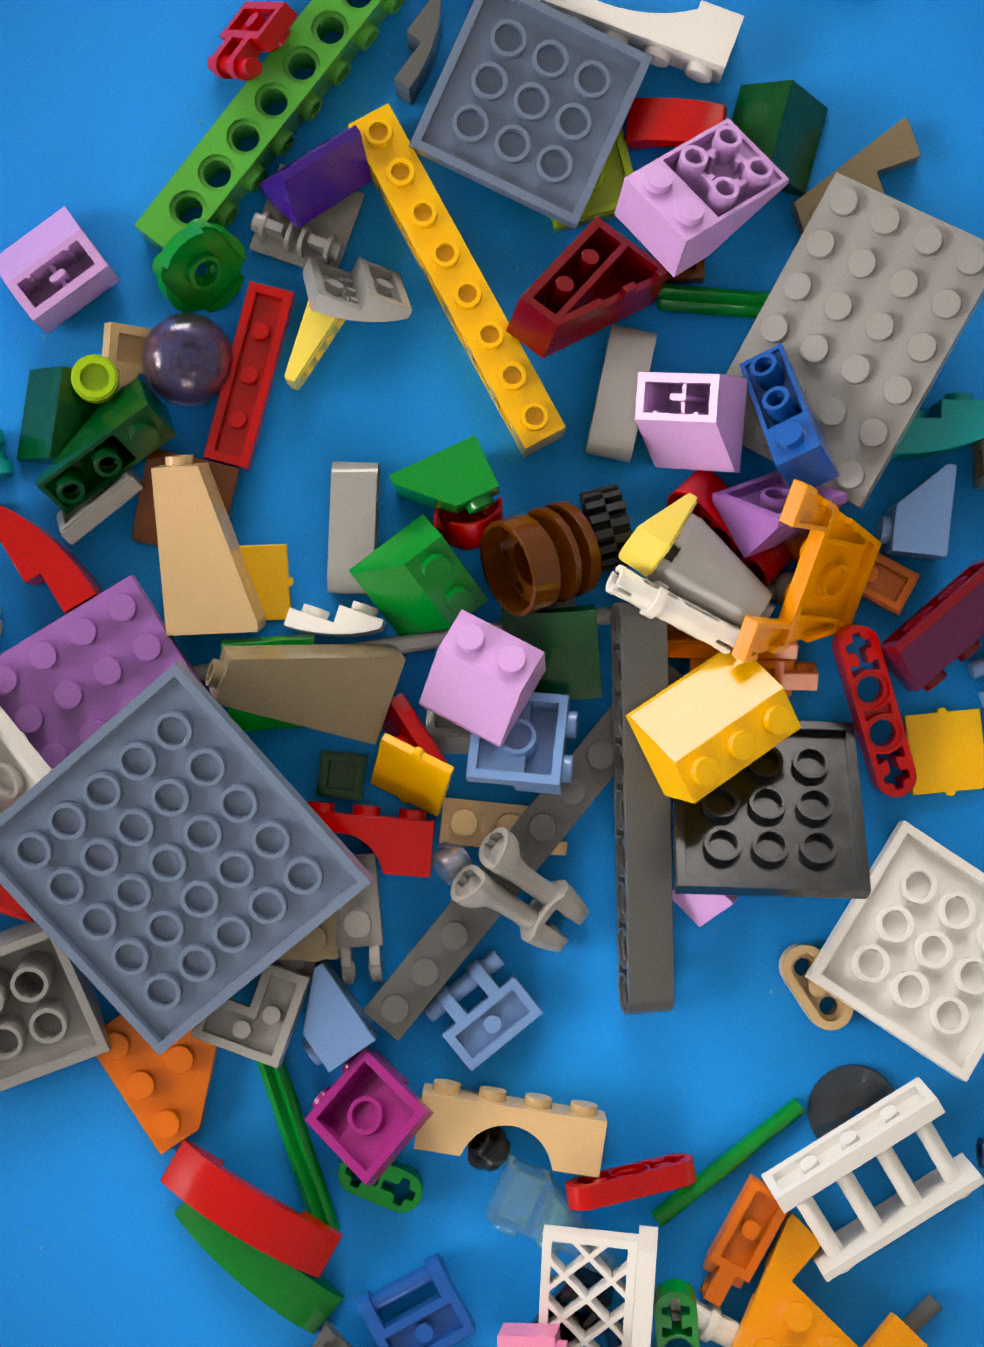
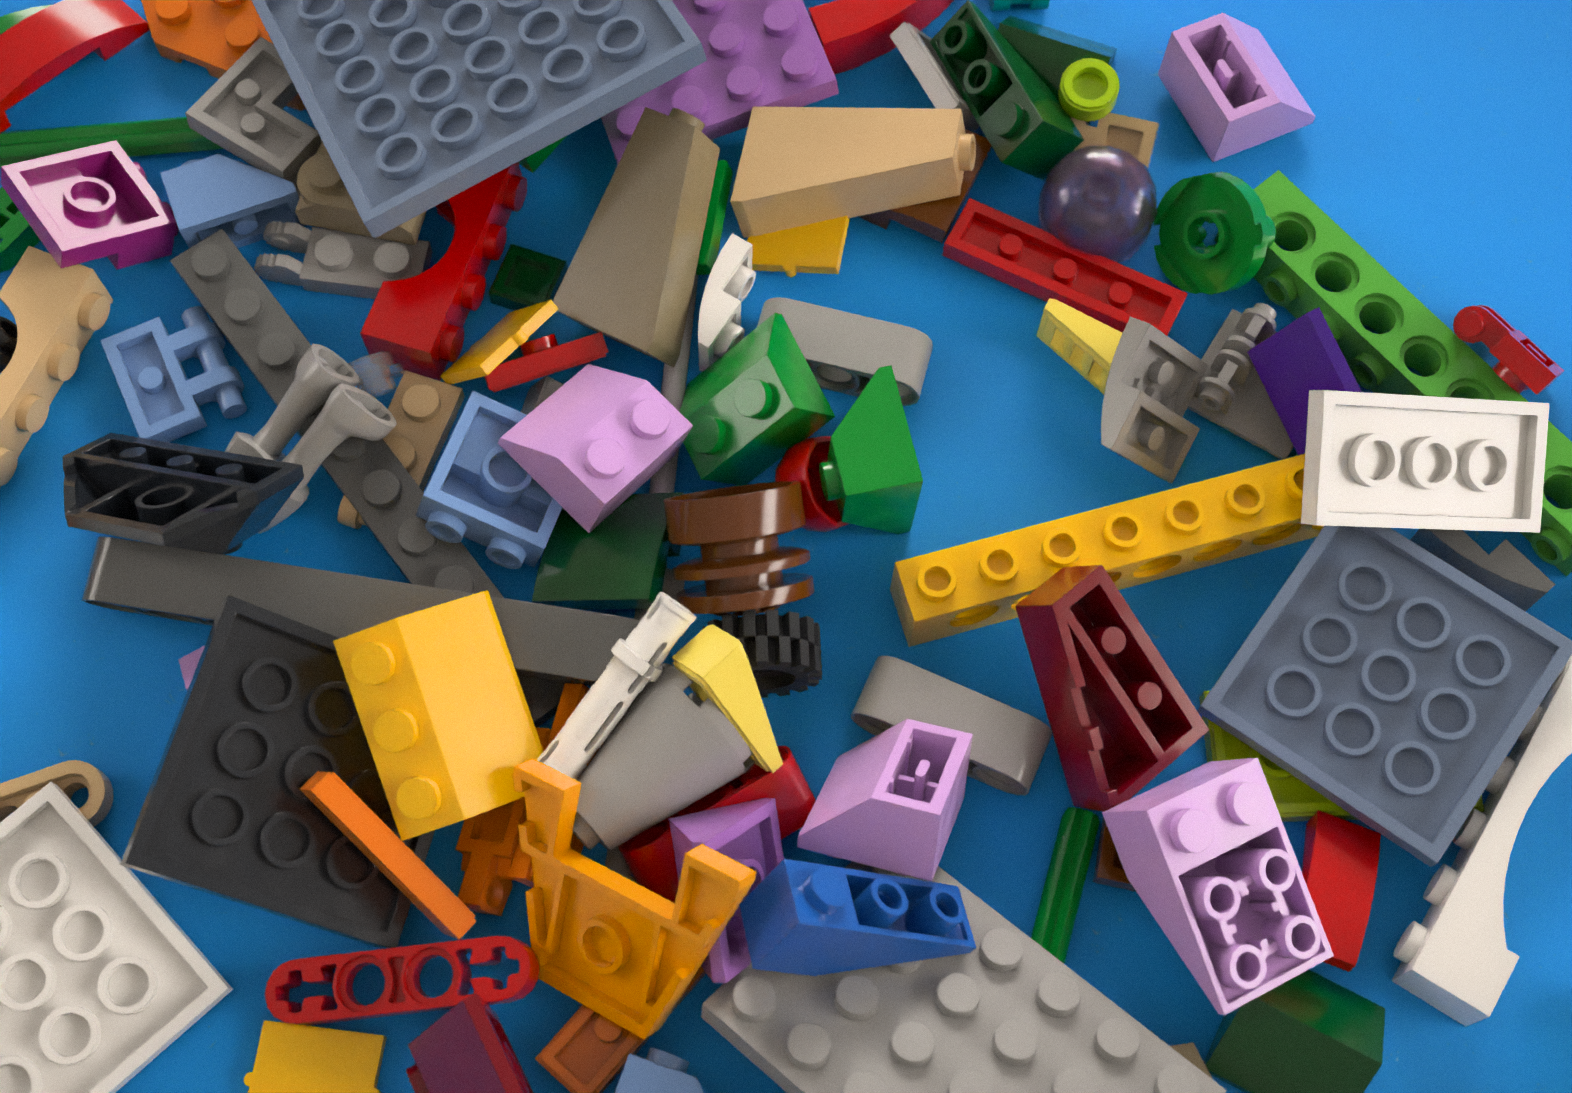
camera: 100 degrees right, 20 degrees down
(378, 88) = (1424, 462): none -> white plate
(593, 970) = (173, 492): none -> black wedge
(806, 738) = (389, 854): none -> orange tile

